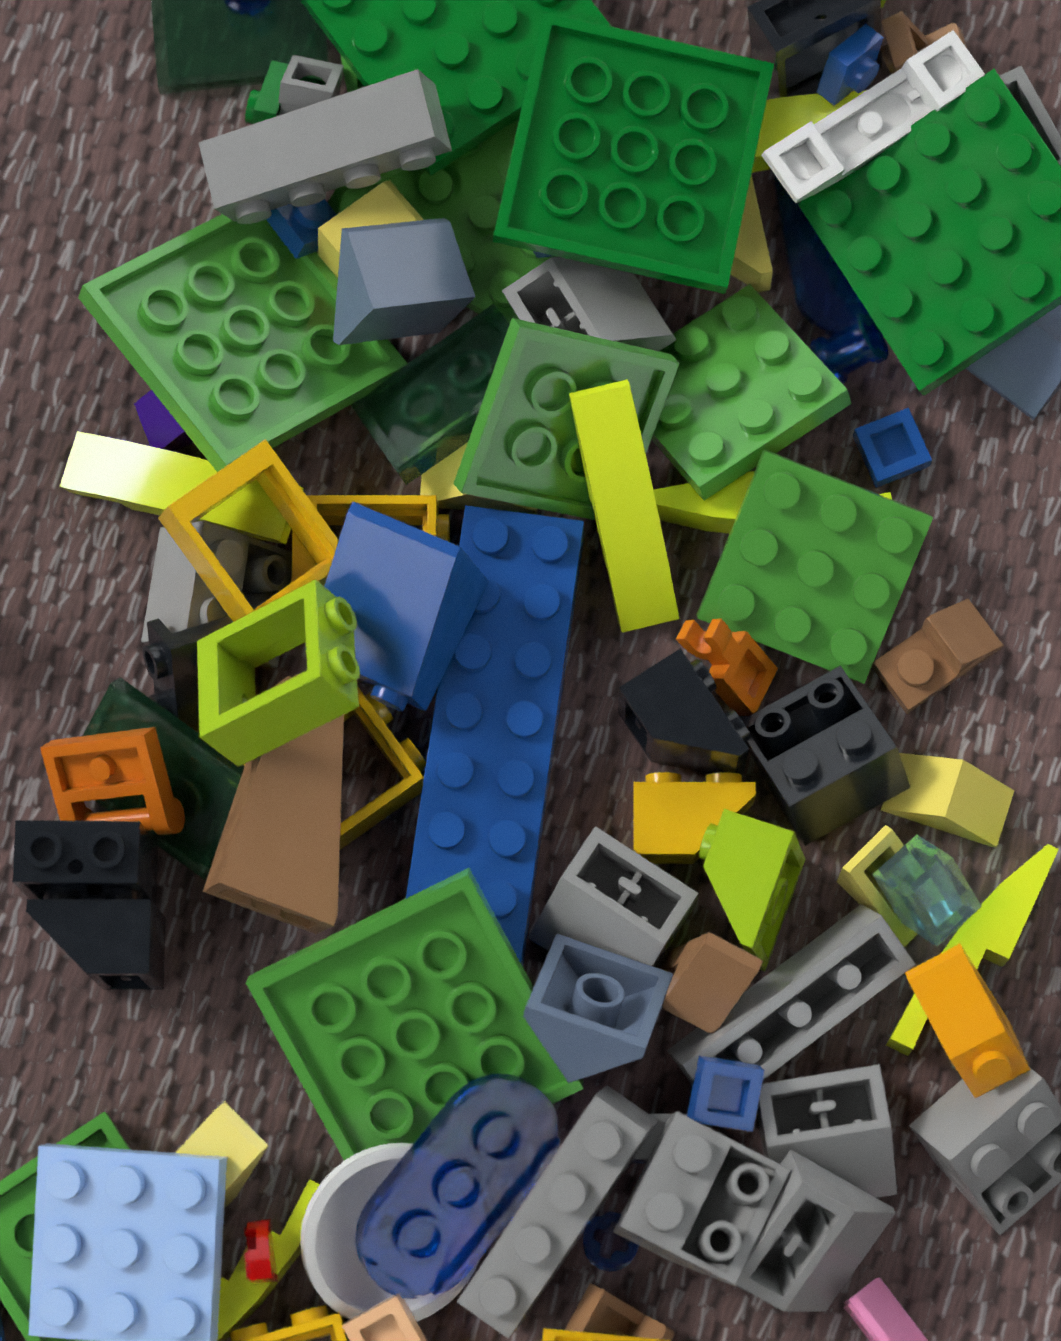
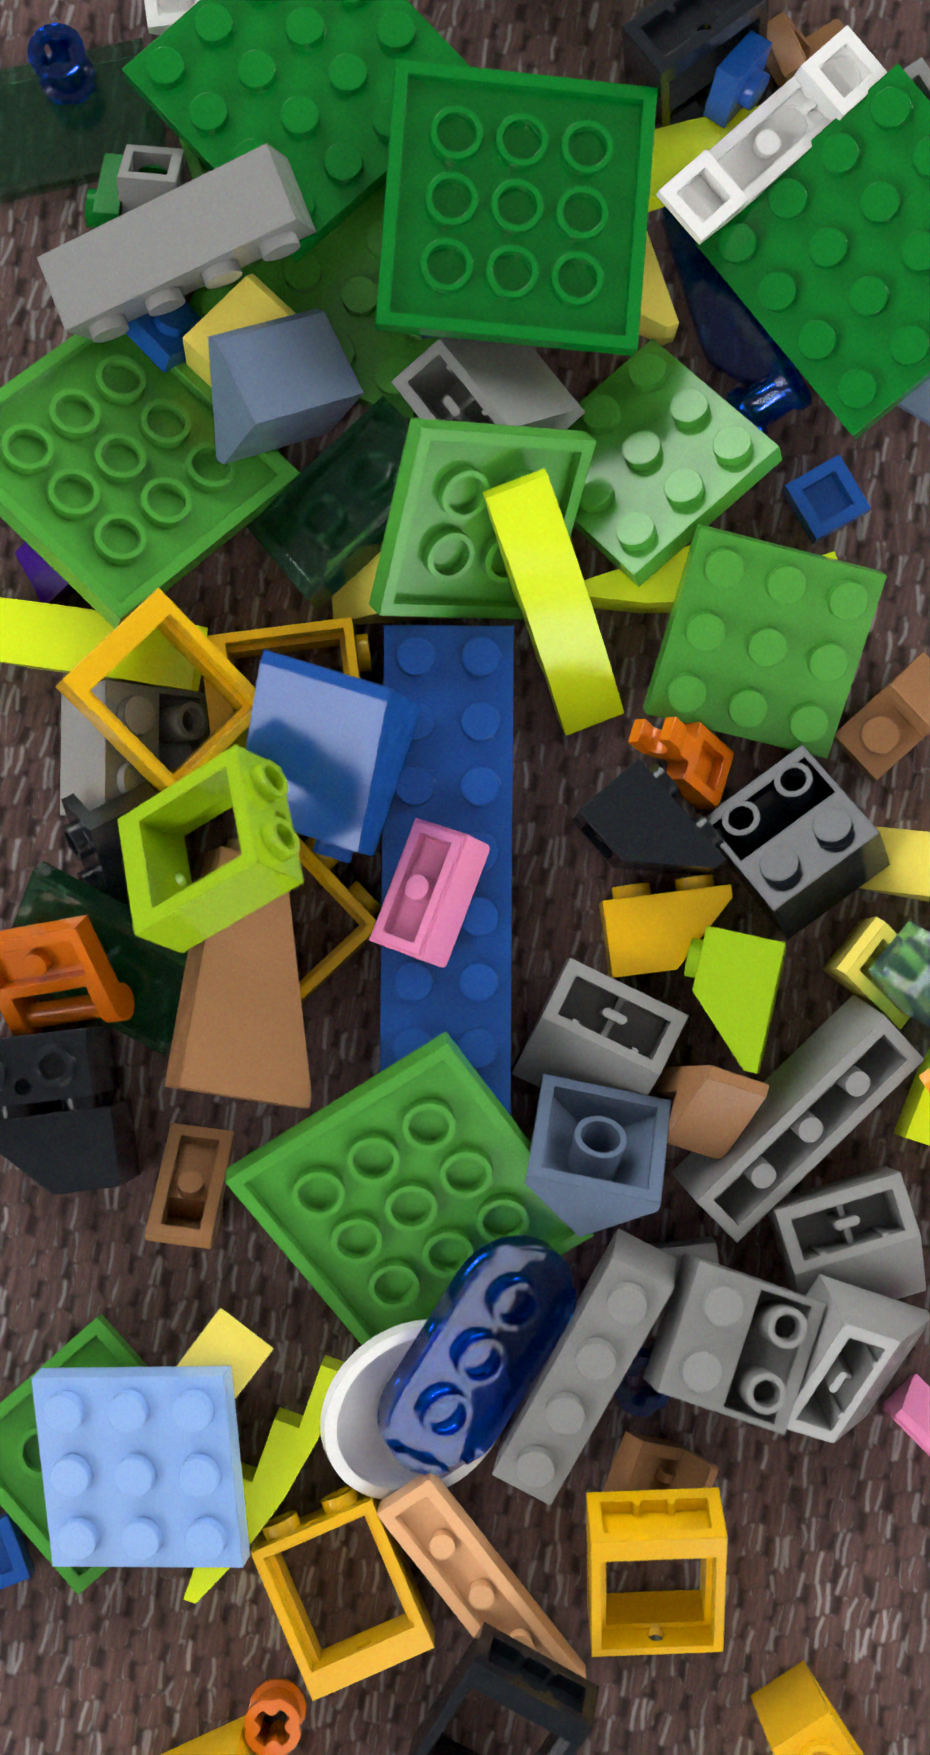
camera: 10 degrees left, 10 degrees up
(212, 997) = (191, 1187): none -> medium nougat slope
(260, 1255) = (284, 1469): red tile -> none
(474, 748) = (430, 892): none -> bright pink slope
(725, 1093) = (745, 1227): blue plate -> none

